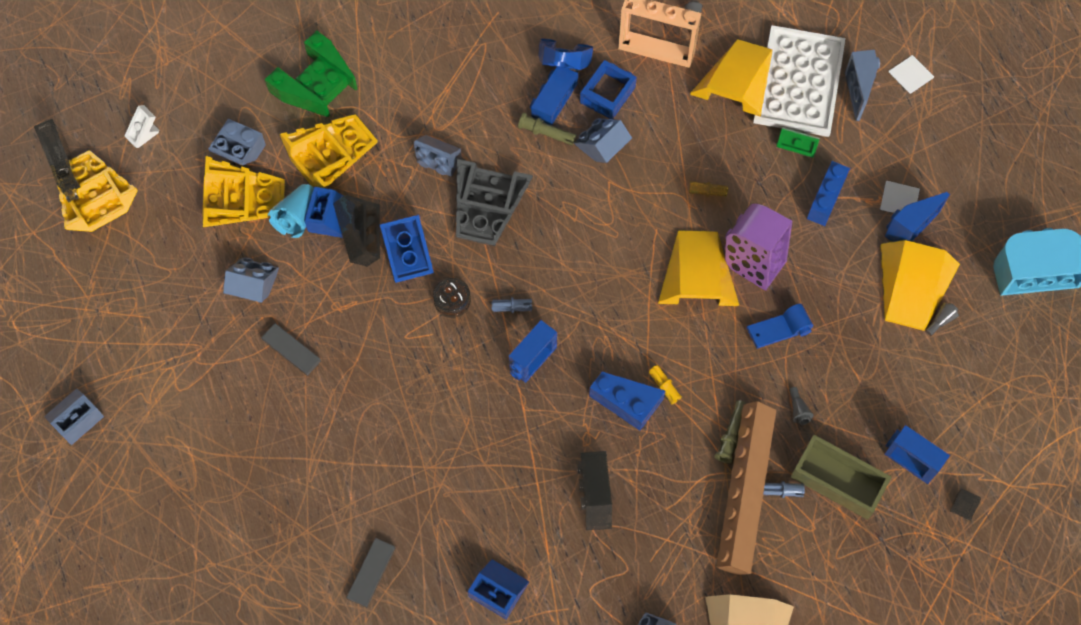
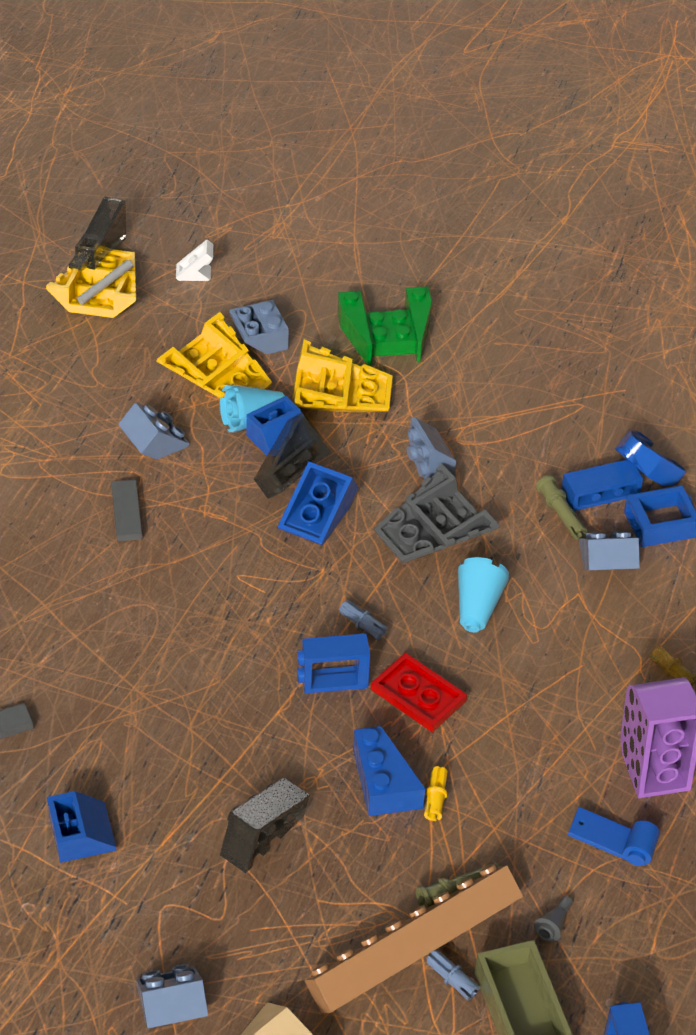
camera: 40 degrees right, 20 degrees down
(99, 191) = (104, 282): none -> light grey bar
(452, 297) = (313, 573): clear smoke head -> none
(563, 232) = (479, 591): none -> medium azure cone
(591, 327) = (418, 692): none -> red plate
(698, 270) = (582, 727): yellow wedge -> none

